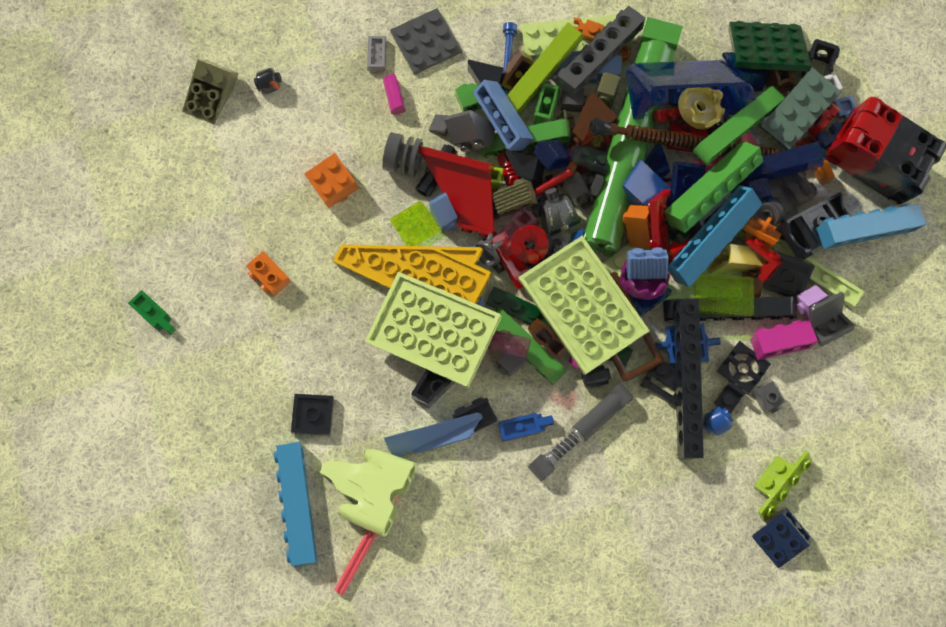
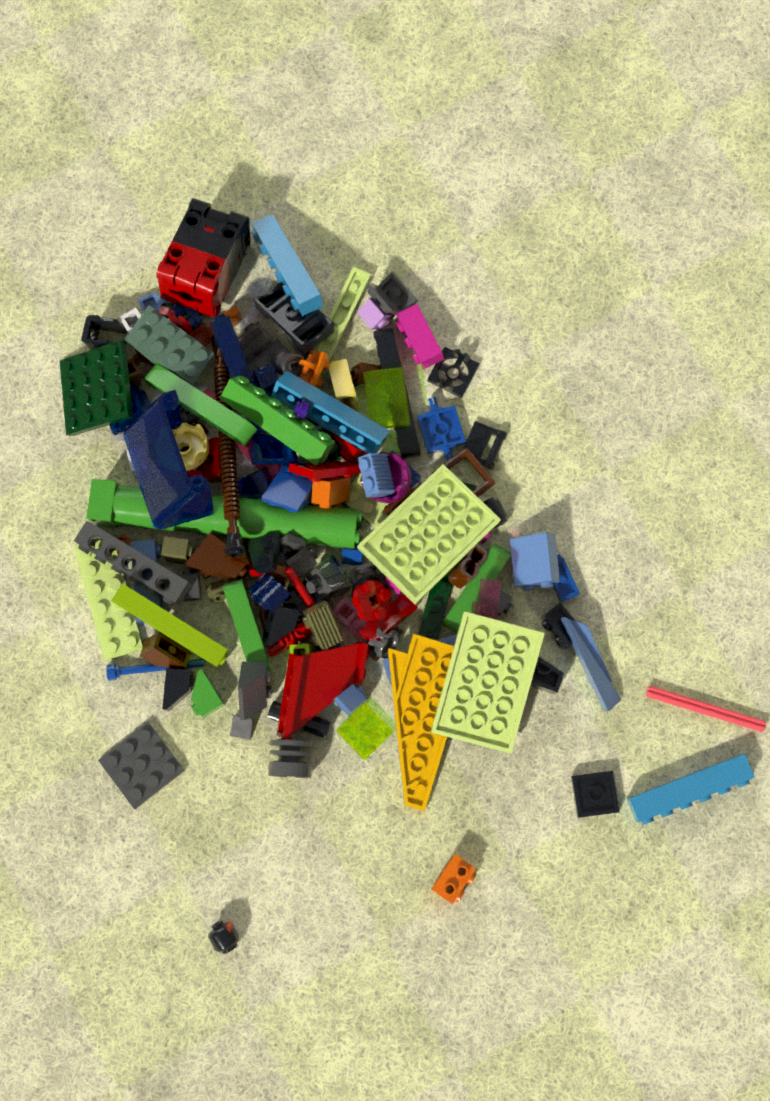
camera: 100 degrees left, 5 degrees up
(151, 312) = (521, 999): green hinge -> none
(209, 90) = (246, 1004): olive slope -> none
(332, 180) = (334, 832): orange brick -> none
(372, 486) = (656, 714): yellowish green rock -> none
(376, 53) = (166, 818): light grey plate -> none
(394, 94) = (215, 786): dark pink brick -> none
(502, 115) = (231, 654): medium blue brick -> none
(540, 402) = (535, 561): none -> medium blue brick
(546, 103) = (203, 613): bright green brick -> none
(582, 430) = (551, 516): dark grey piece -> none
(589, 28) = (103, 580): orange plate -> none
(688, 379) = (481, 421): black brick -> none
(718, 421) = (514, 388): blue head -> none
(721, 205) = (301, 409): none -> dark purple plate
(730, 396) = (487, 381): black bracket -> none
(769, 398) = (481, 344): dark grey brick -> none
(772, 257) = (342, 355): red bracket -> none
(778, 481) = (559, 327): lime bracket -> none
(782, 538) = (613, 314): dark blue bracket -> none
(790, 277) = (351, 339): black plate -> none

